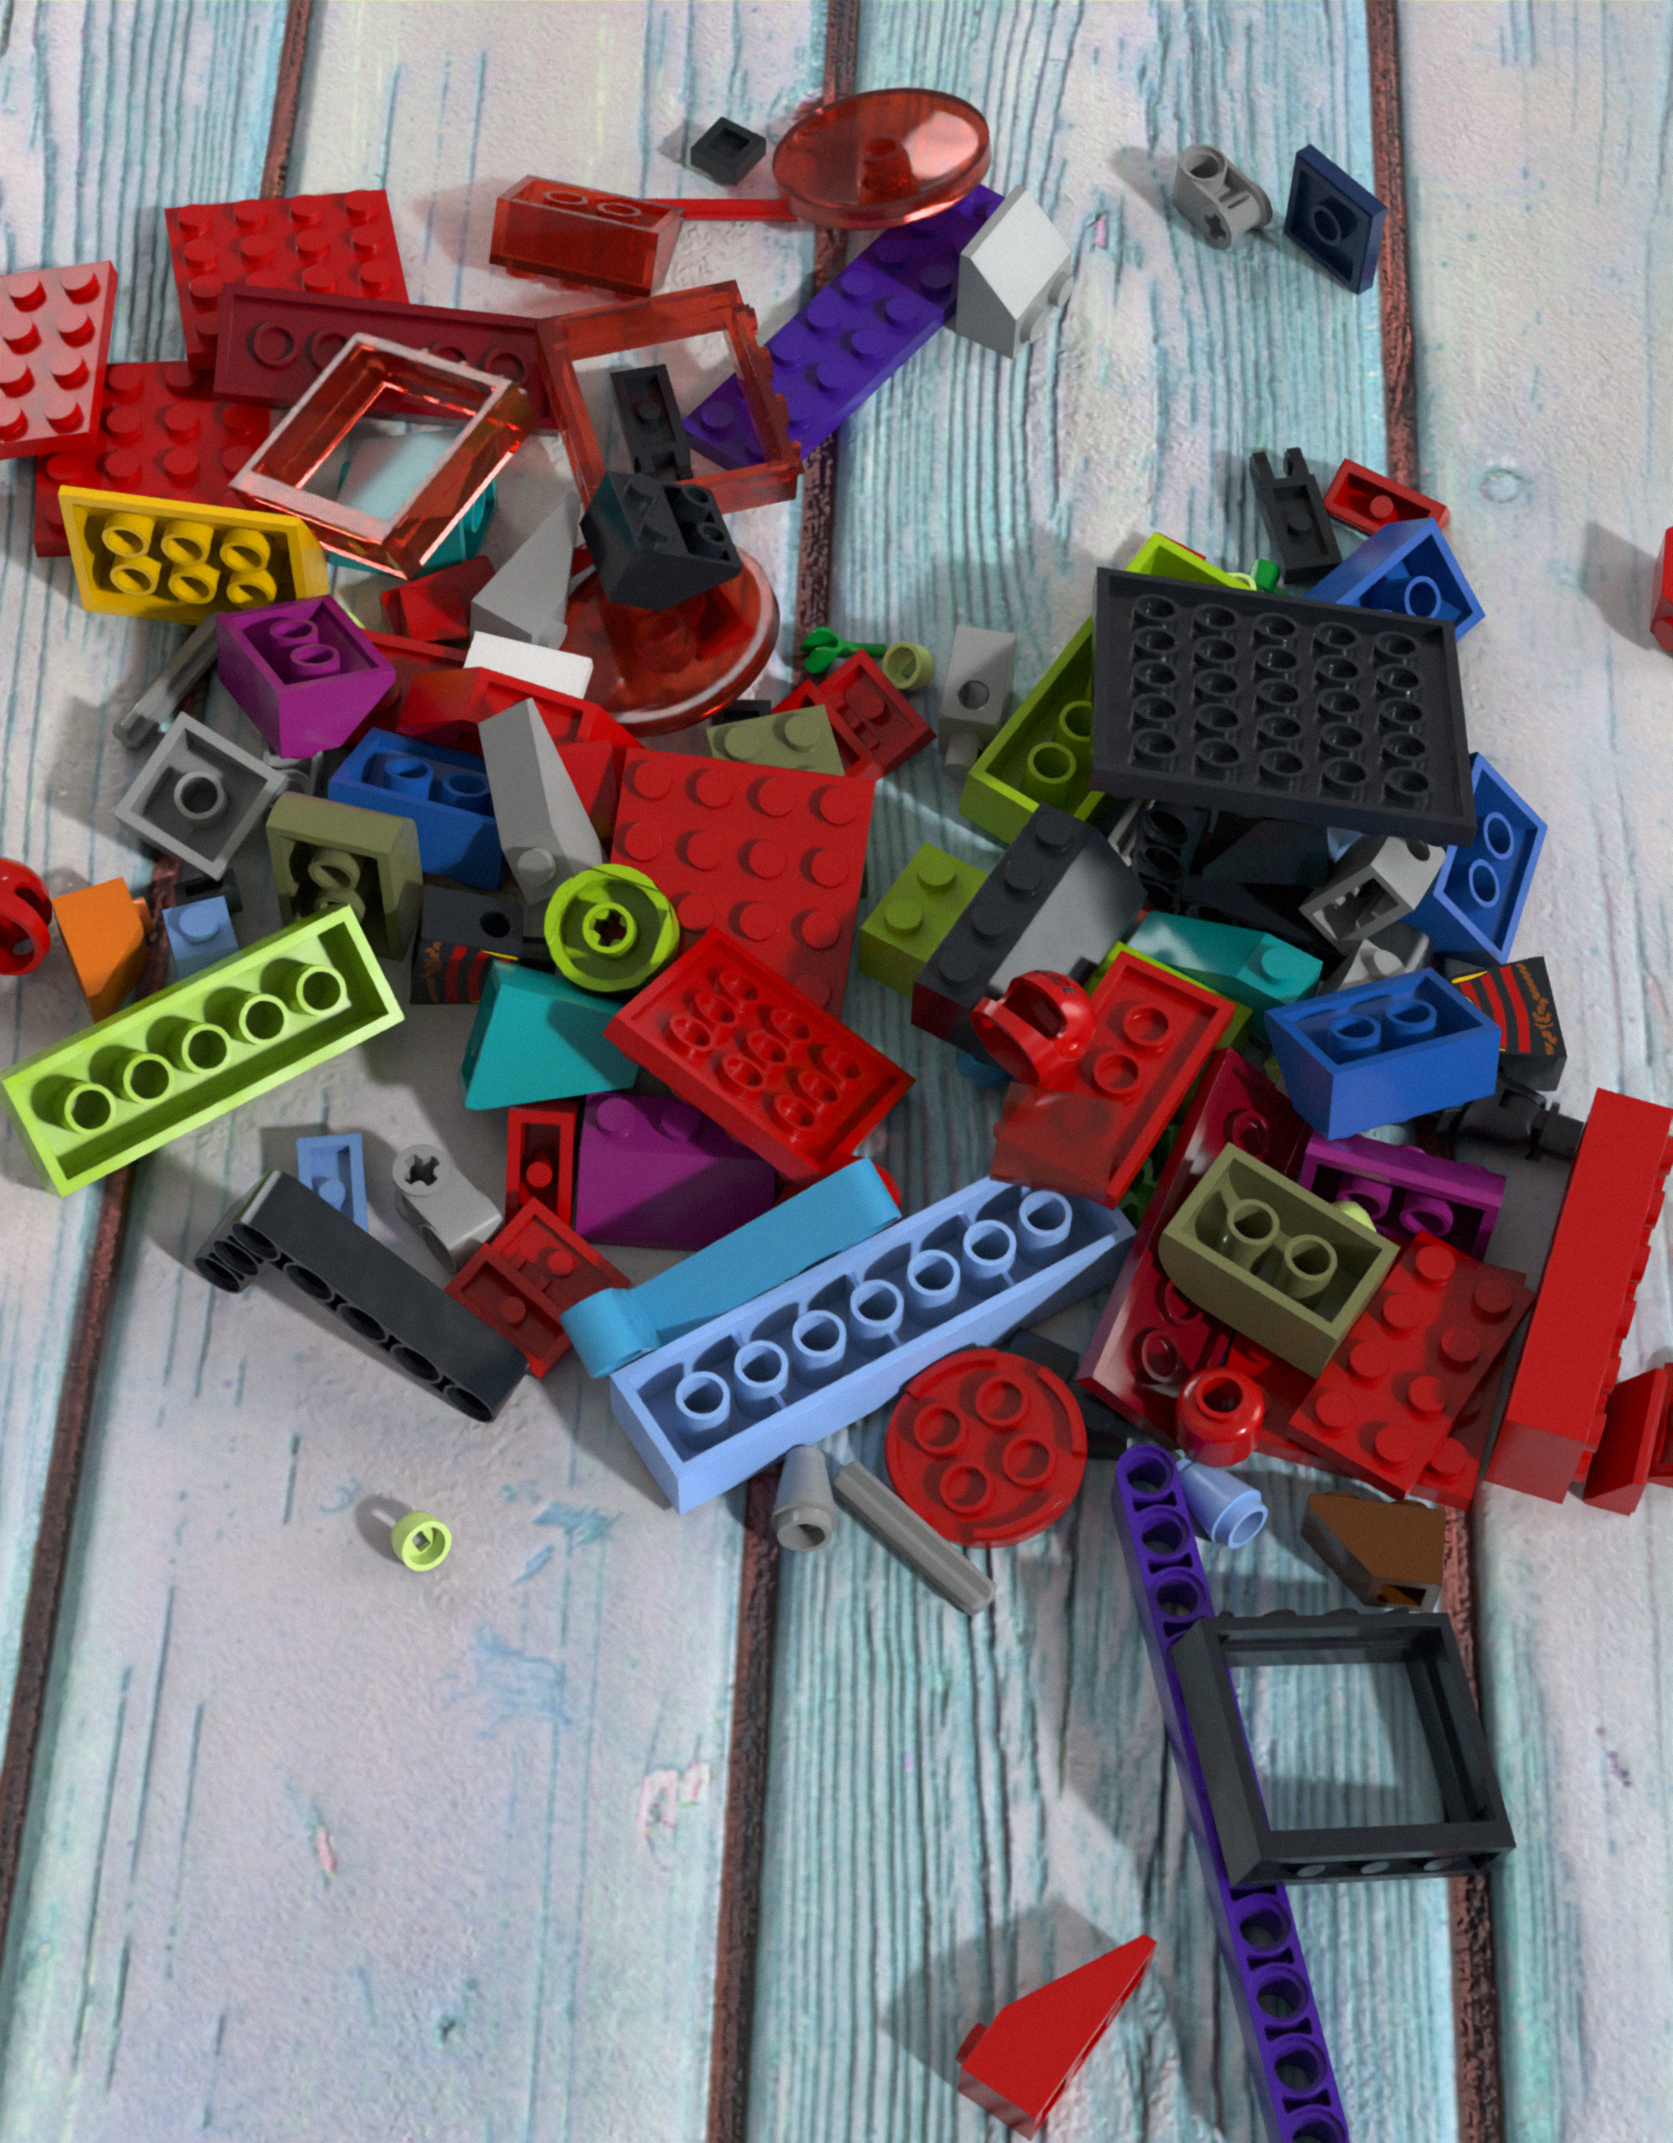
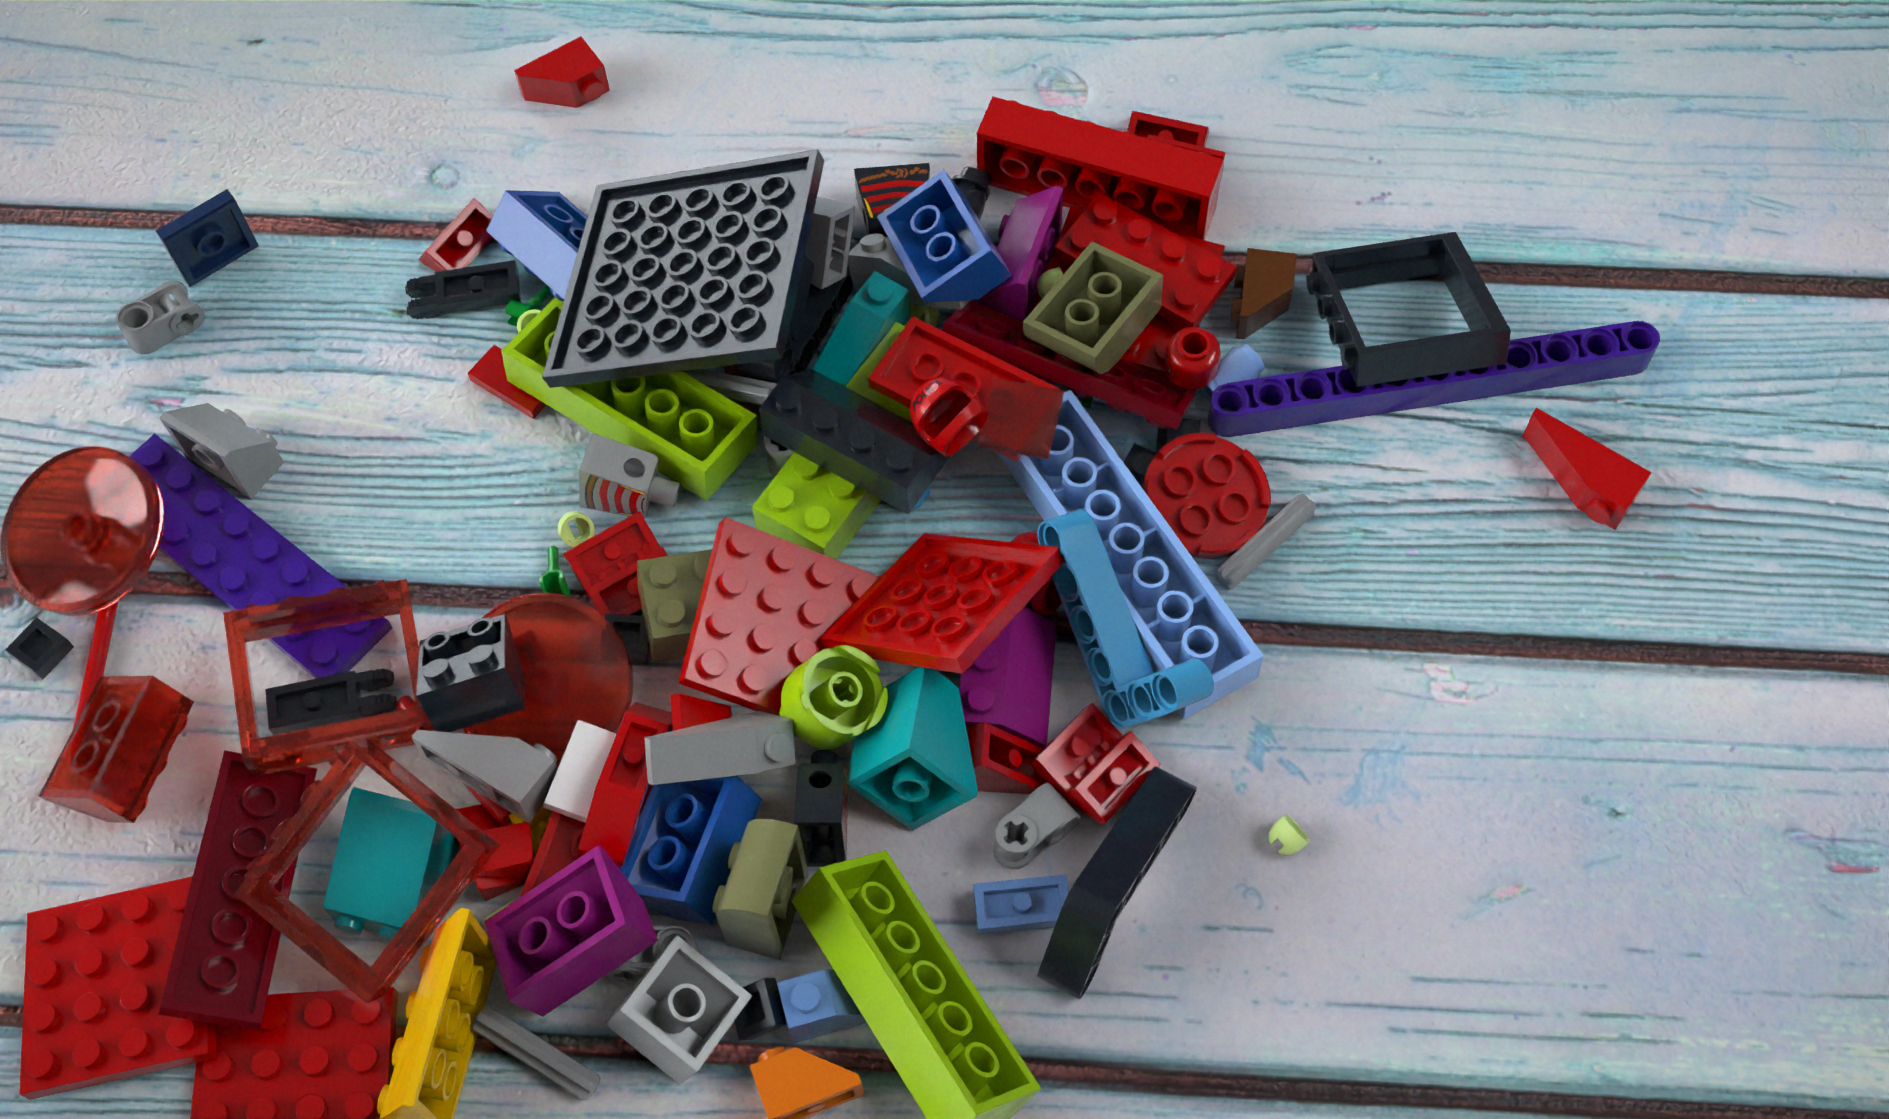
camera: 85 degrees left, 5 degrees up
(804, 1502) = (1251, 599): light grey cone -> none

